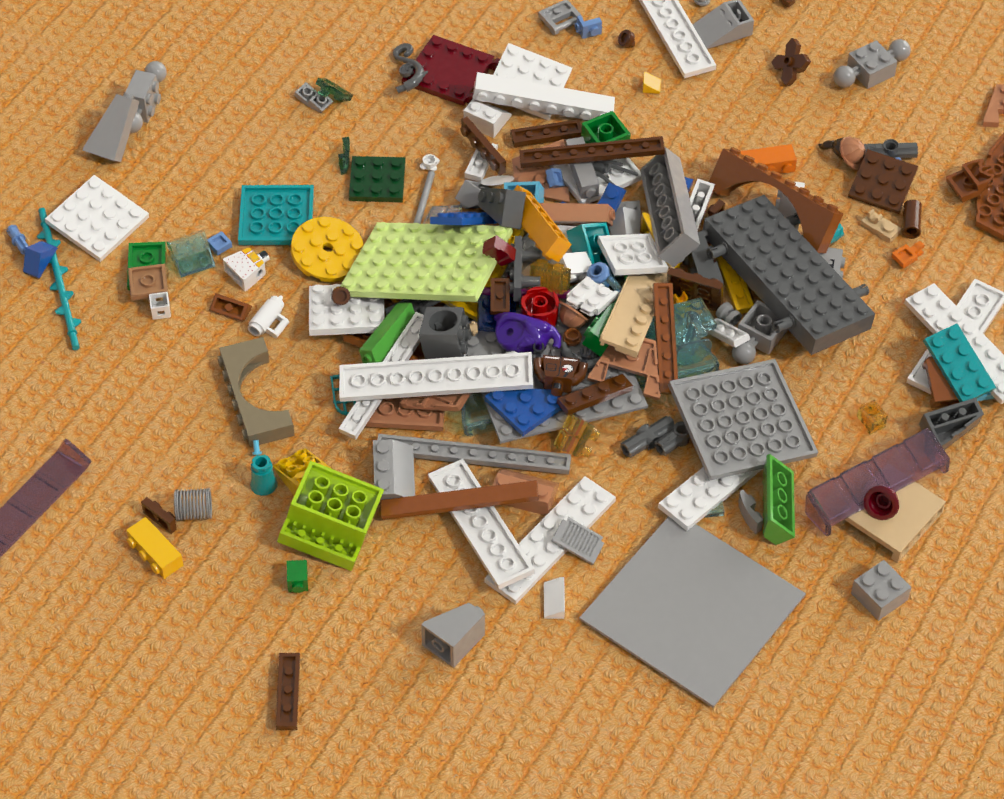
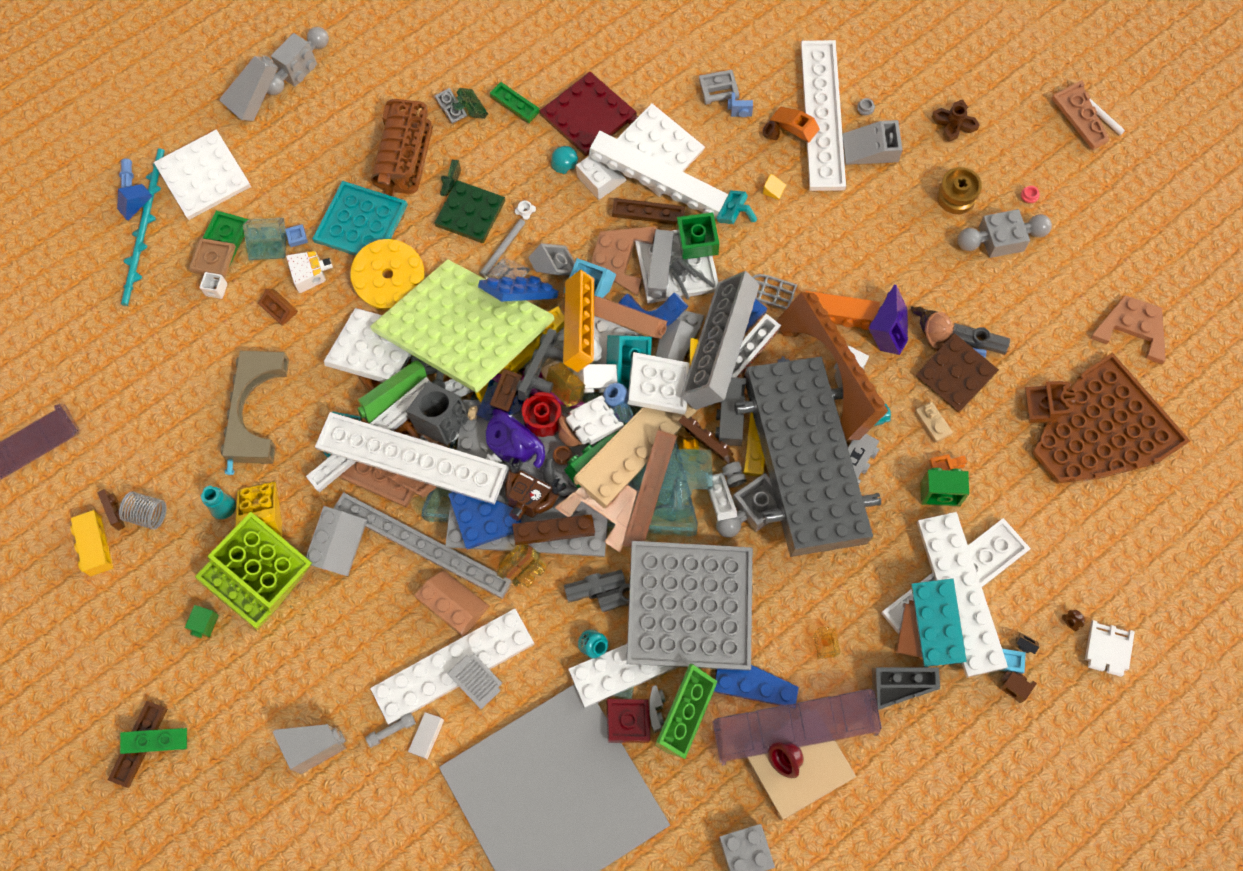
camera: 25 degrees right, 15 degrees up
(265, 317) = (301, 328): white piece -> none
(283, 139) = (401, 145): none -> dark orange piece
(304, 680) = (153, 740): none -> green plate
(340, 295) = (367, 334): reddish brown tile -> none
(374, 78) = (514, 102): none -> green plate
(407, 69) = (544, 103): dark grey plant -> none
(445, 113) = (564, 159): none -> teal hair
(459, 500) = (380, 597): dark orange tile -> none
(478, 166) = (573, 222): white plate -> none
(484, 529) = (390, 630): white plate -> none
(485, 148) = (577, 216): reddish brown plate -> none
(497, 180) = (577, 249): white sticker -> none
(500, 250) = (524, 342): dark red piece -> none
(503, 205) = (556, 289): dark grey wedge -> none
(508, 616) = (374, 738): none -> light grey bar
(554, 178) = (631, 266): medium blue plate -> none
(592, 152) = (672, 253): reddish brown plate -> none
(624, 105) = (733, 206): none -> teal plate
(648, 24) = (796, 122): none -> orange slope
(670, 478) = (592, 643): none -> teal head
(695, 162) = (780, 288): none -> light grey window
(715, 208) = (773, 352): reddish brown plate -> none
(730, 526) = (628, 721): none -> dark red plate
(791, 62) = (921, 207): reddish brown plant -> none
(809, 160) = (891, 323): none -> dark purple slope
(818, 40) = (959, 190): none -> pearl gold wheel
(821, 468) = (756, 686): none -> blue wing
(879, 29) = (1030, 194): none -> coral plate
(912, 219) = (968, 425): reddish brown pin -> none
(915, 268) = (944, 487): none -> green brick

